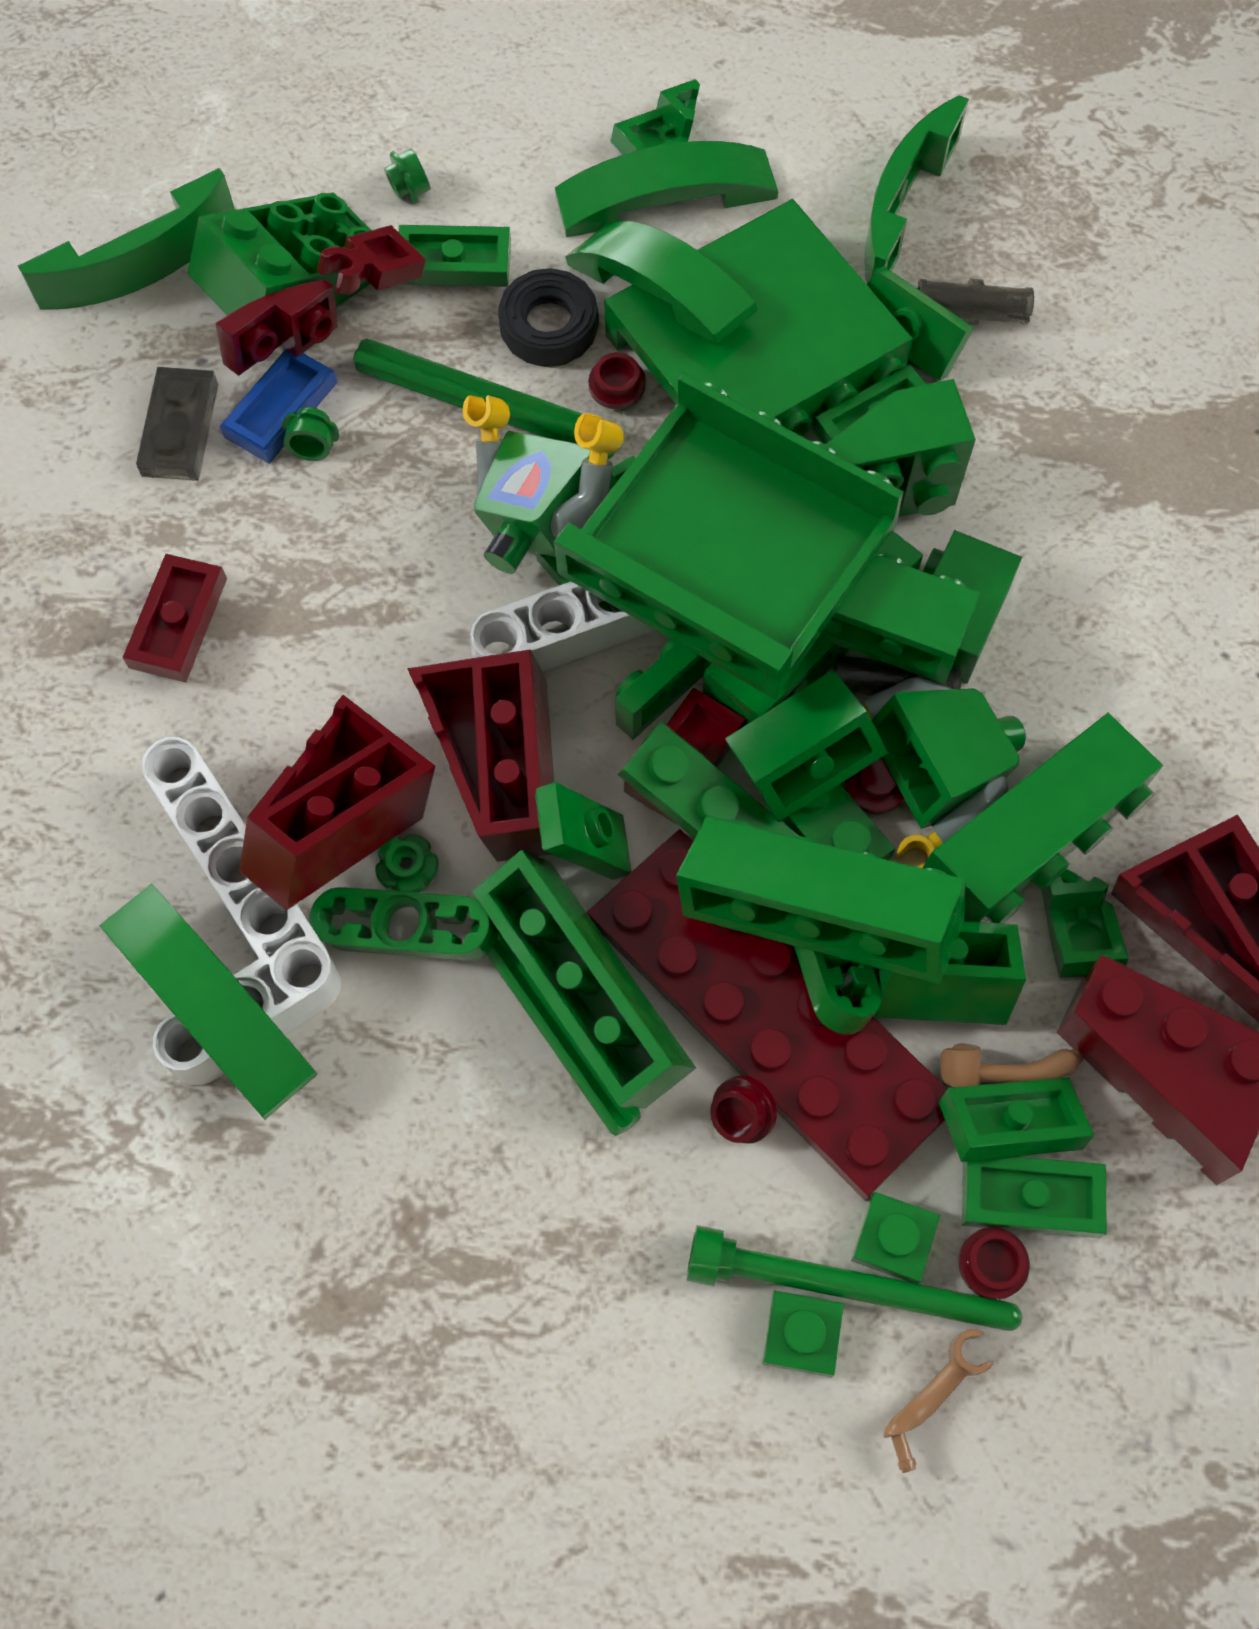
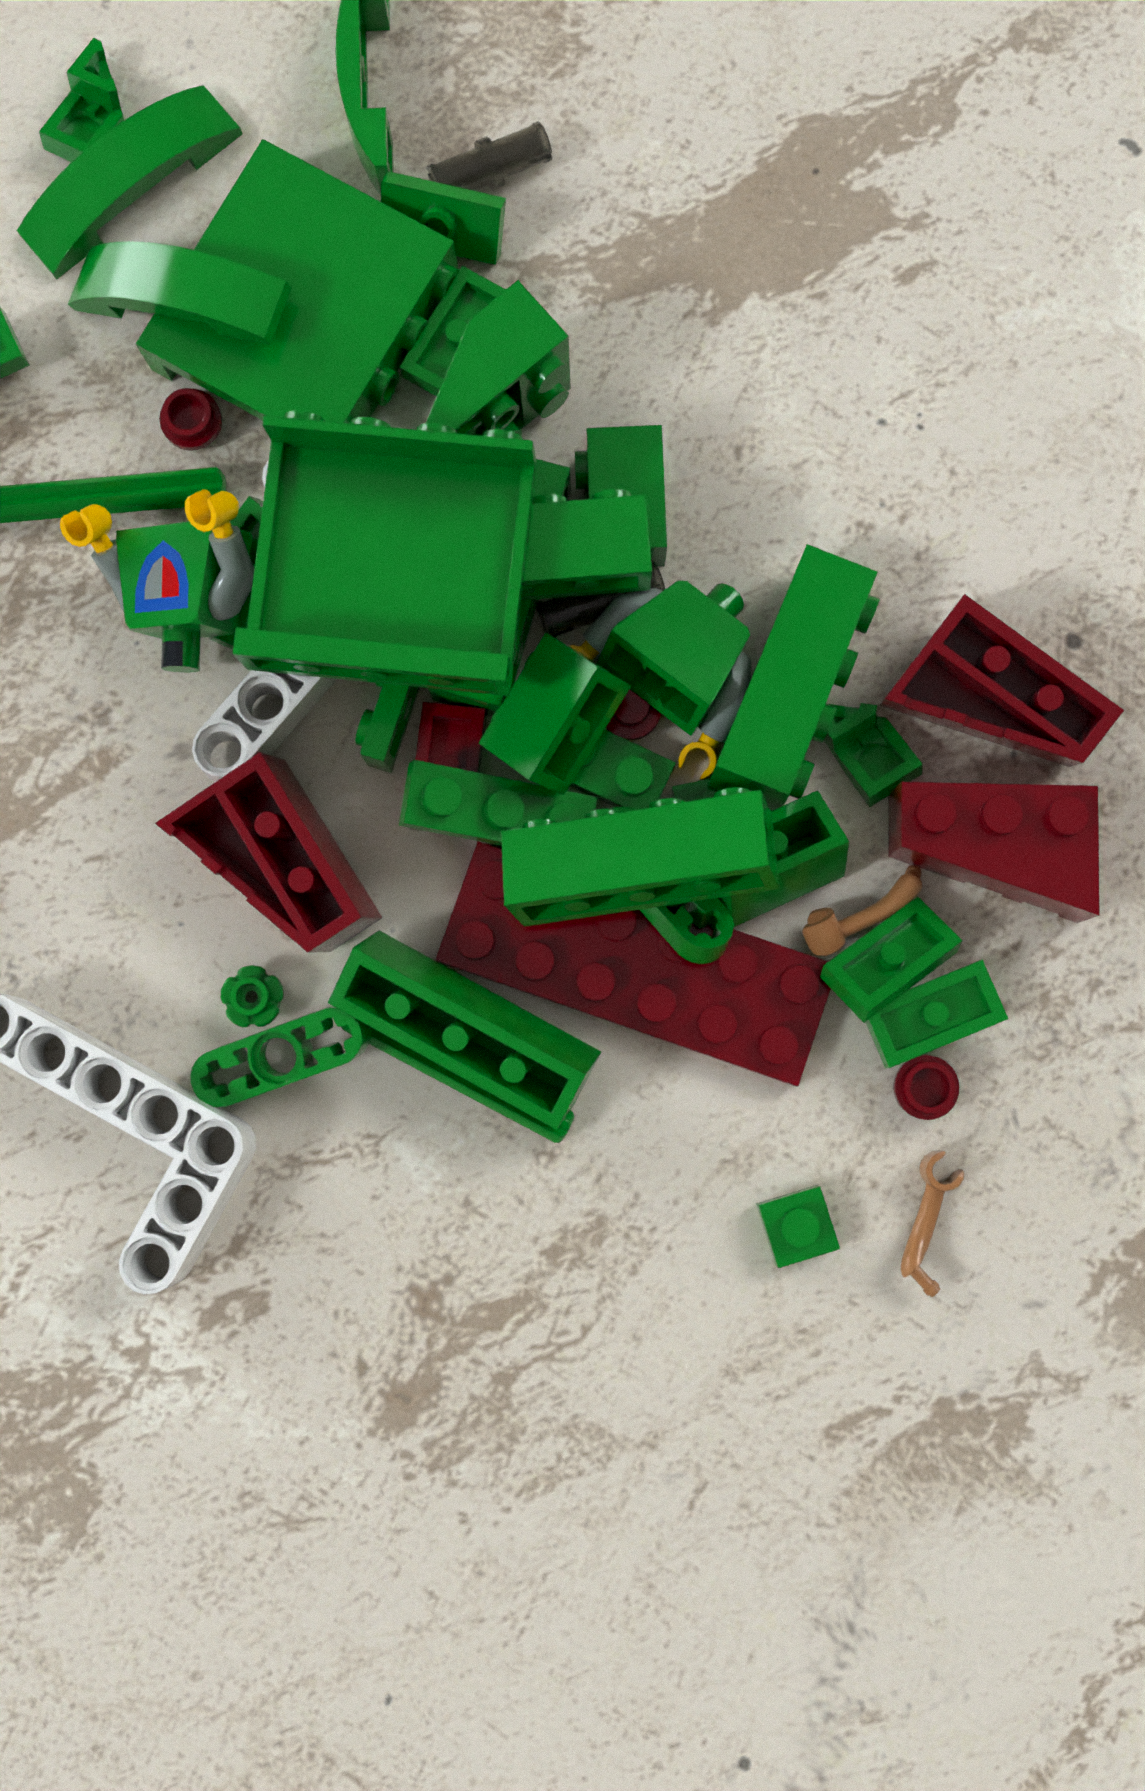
camera: 20 degrees left, 15 degrees up
(209, 1001) = (145, 1216): green slope -> none
(334, 805) = (160, 987): dark red wedge -> none
(547, 287) = (66, 350): black tyre -> none
(582, 831) = (395, 895): green plate -> none
(719, 1259) = (700, 1202): green piece -> none
(743, 1110) = (658, 1068): dark red plate -> none
(895, 1238) = (836, 1107): green plate -> none

